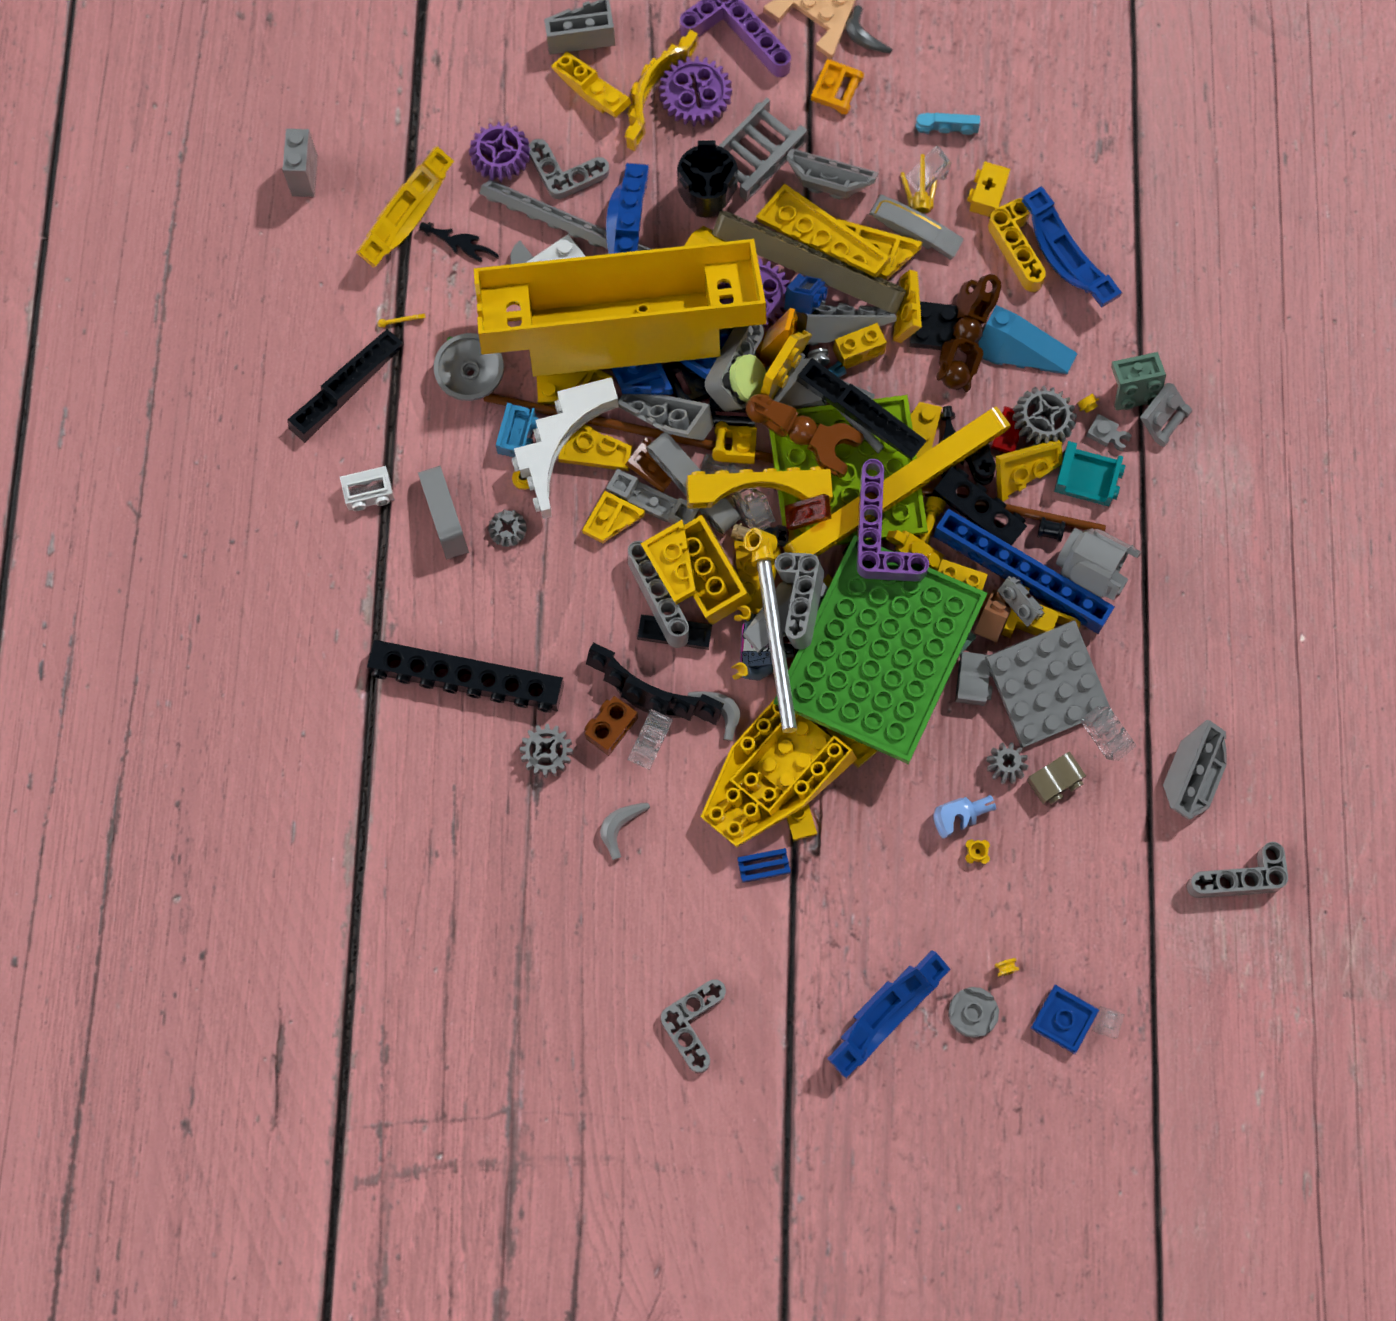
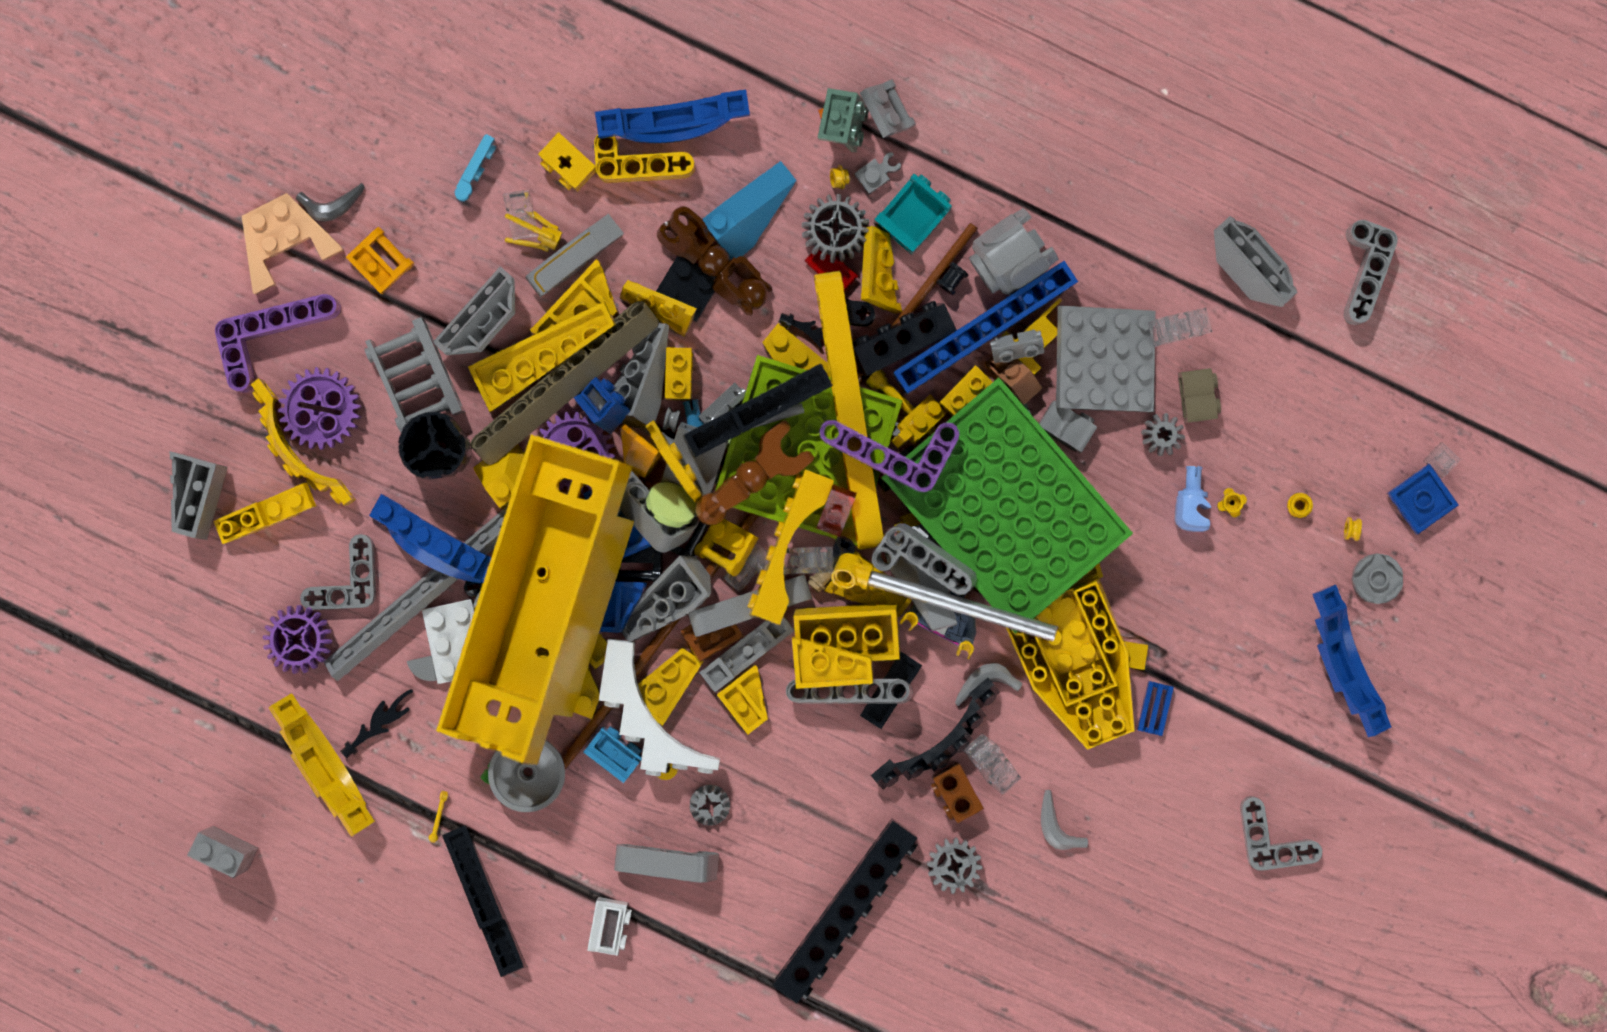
camera: 65 degrees left, 15 degrees up
(1004, 904) = (1307, 502): none -> yellow plate

